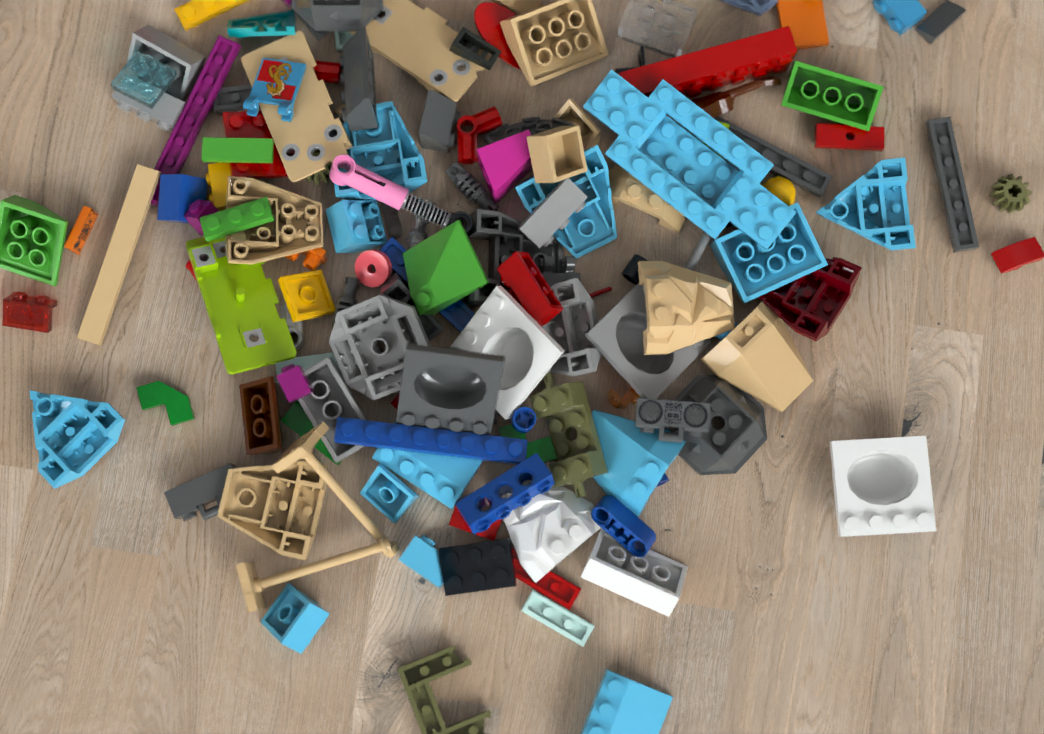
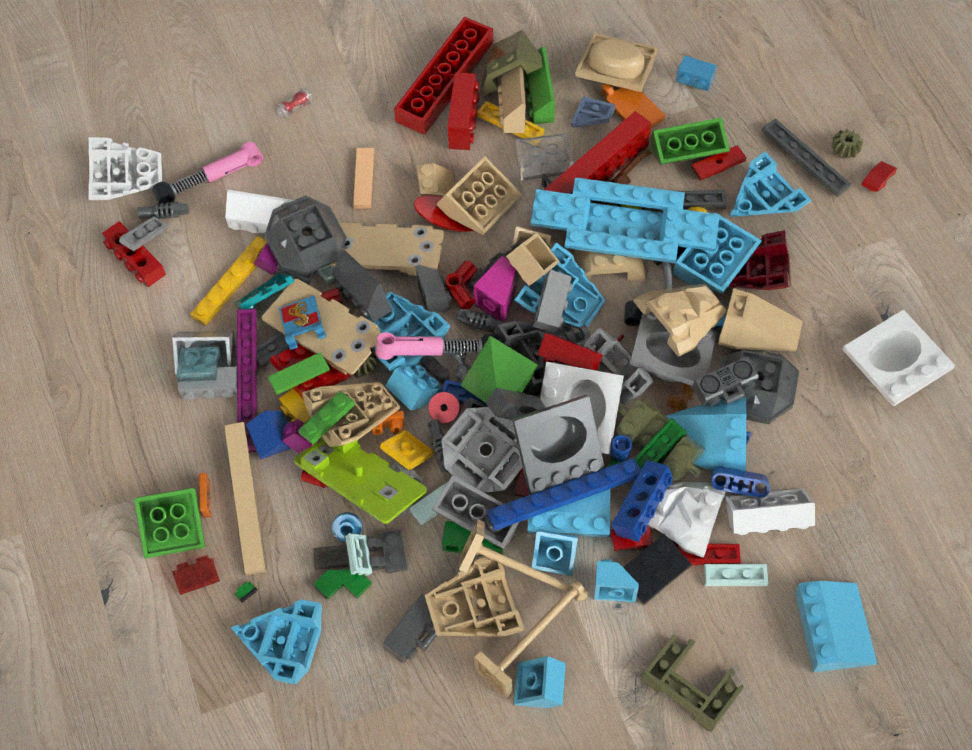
camera: 25 degrees left, 20 degrees down
(69, 356) = (245, 591): none -> green piece
(172, 370) = (331, 557): none -> clear smoke plate
(187, 380) = (356, 553): none -> light aqua tile
(200, 346) = (345, 524): none -> dark azure plate
(230, 404) = (393, 549): none -> dark grey plate
(261, 416) = (427, 546): reddish brown slope -> none
(294, 382) = (440, 502): magenta brick -> none
(437, 322) = (512, 404): none -> dark grey piece
(472, 39) = (423, 230): pearl dark grey slope -> none
(563, 441) = (661, 443): none -> green tile
(940, 21) = (728, 69): dark grey slope -> none

